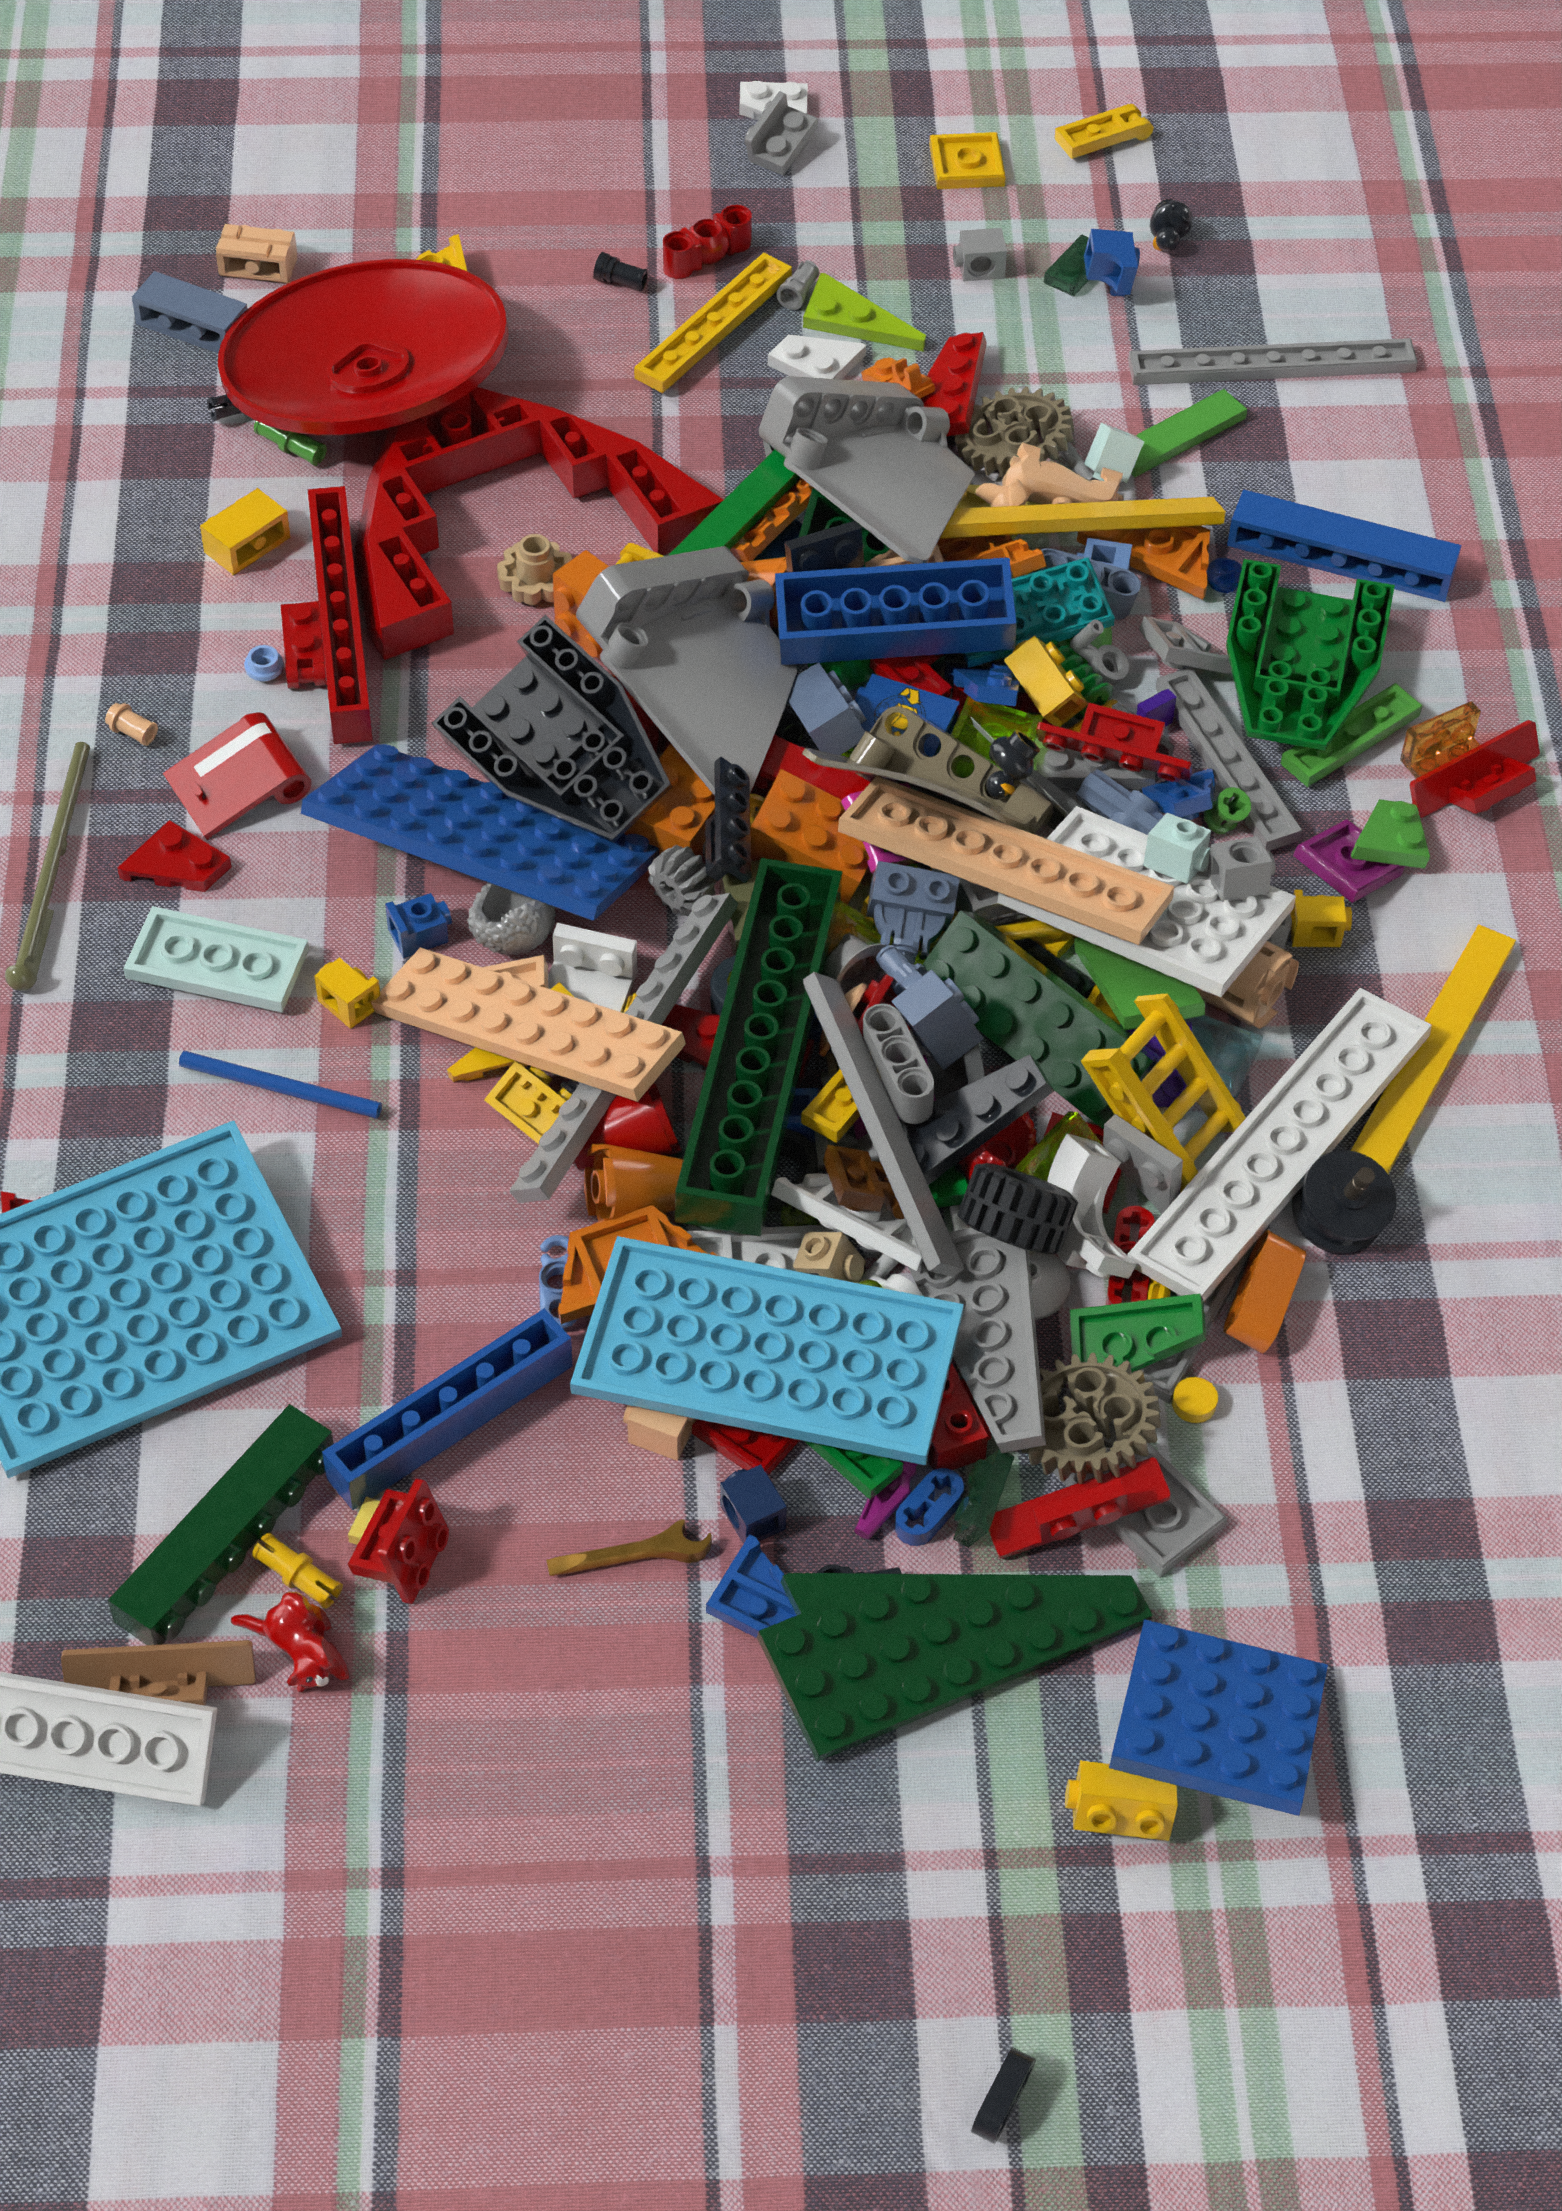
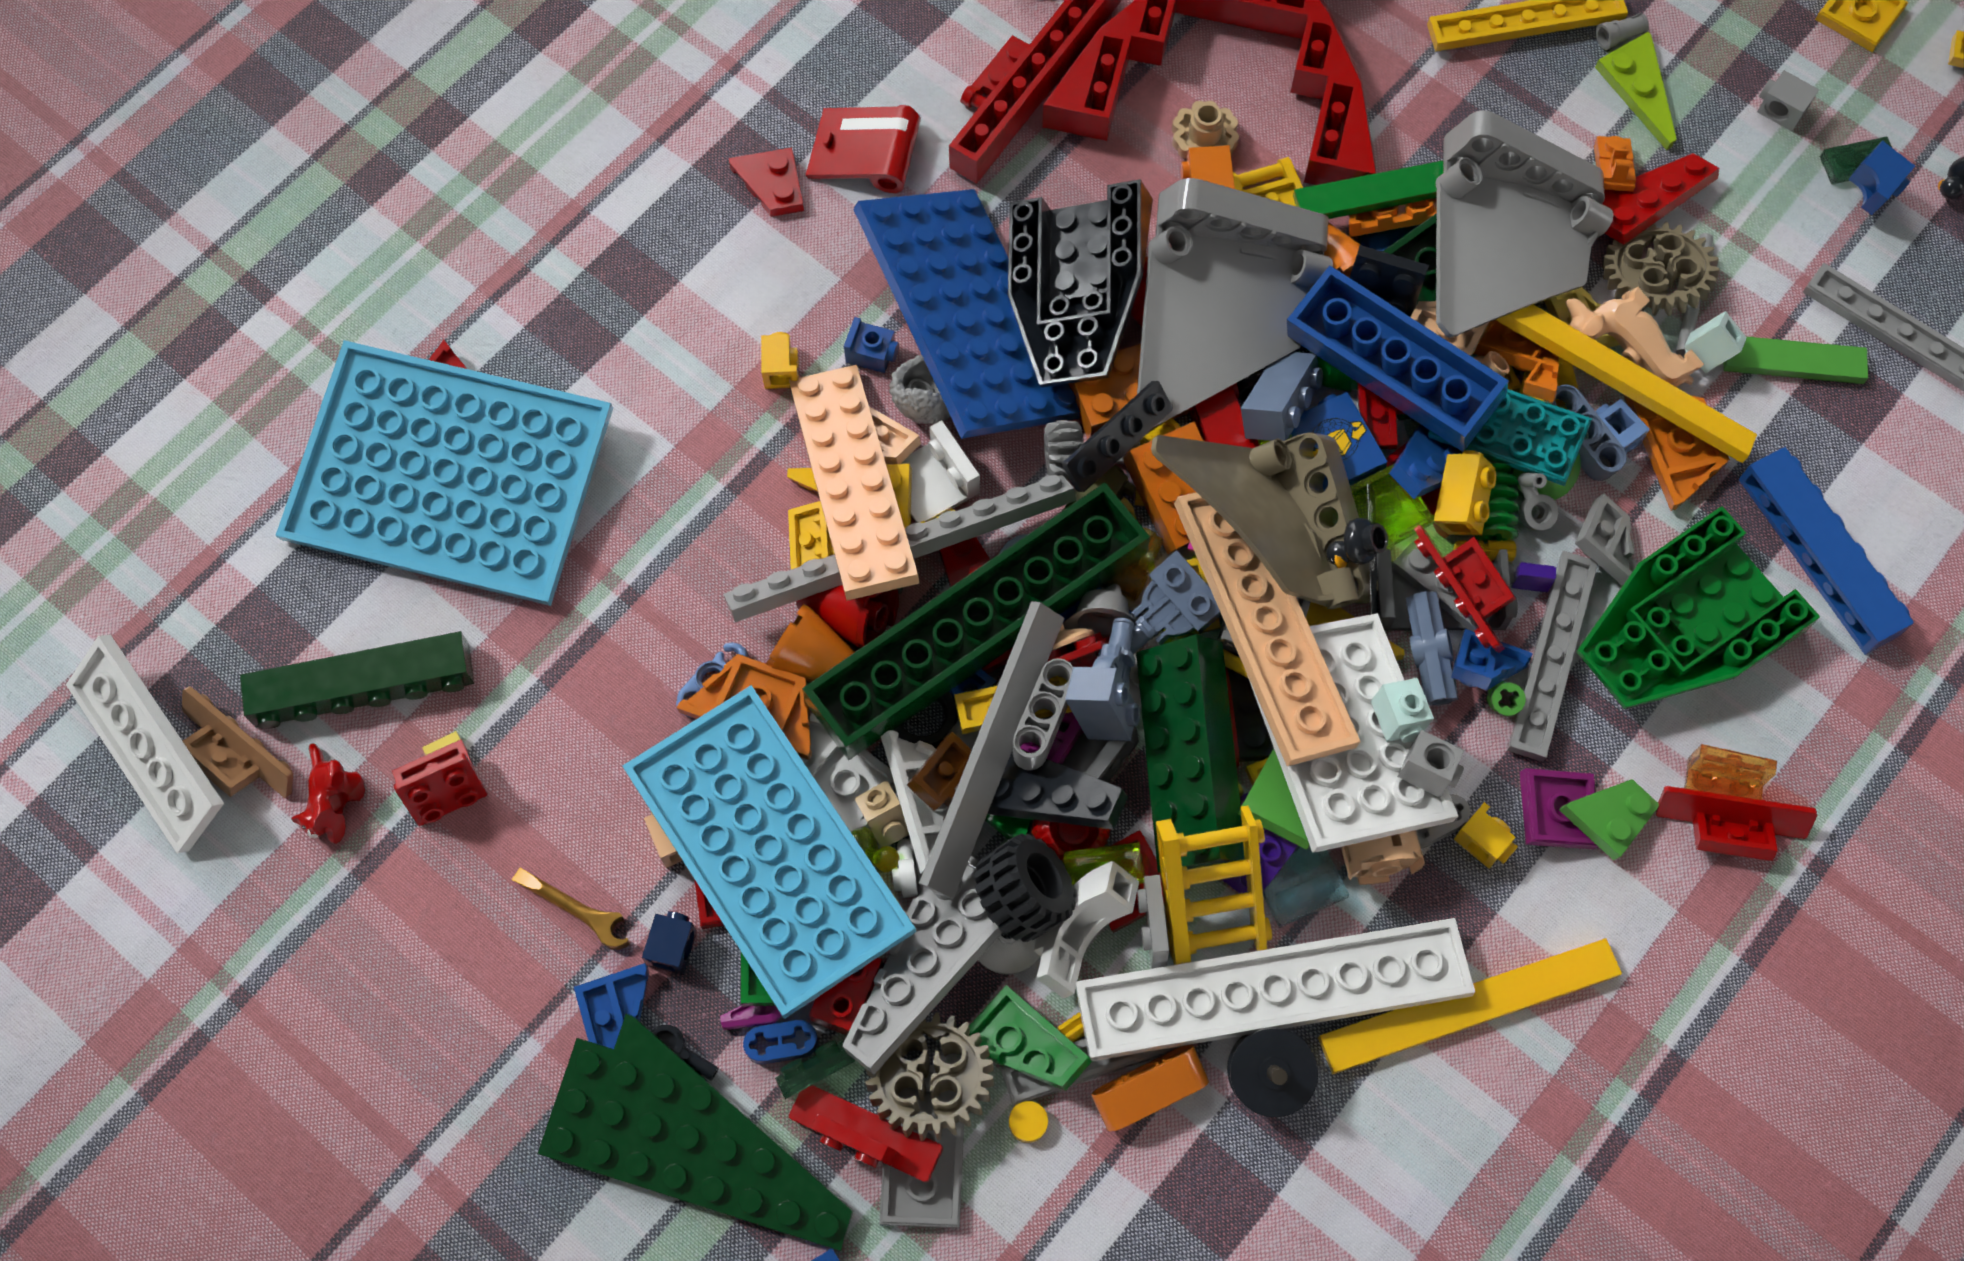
camera: 45 degrees right, 15 degrees up
(24, 973) = (653, 158): olive bar -> none
(125, 720) = (833, 49): light nougat pin -> none
(216, 959) = (725, 273): light aqua plate -> none
(263, 663) = (960, 65): light blue plate -> none
(280, 1084) = (682, 396): blue piece -> none
(297, 1570) = (372, 746): yellow pin -> none
(448, 1409) = (551, 714): blue brick -> none
(816, 357) = (1575, 102): white wing -> none
(1137, 1280) = (1101, 957): red beam -> none
(1223, 574) = (1700, 507): clear blue plate -> none
(1362, 729) = (1680, 712): bright green plate -> none

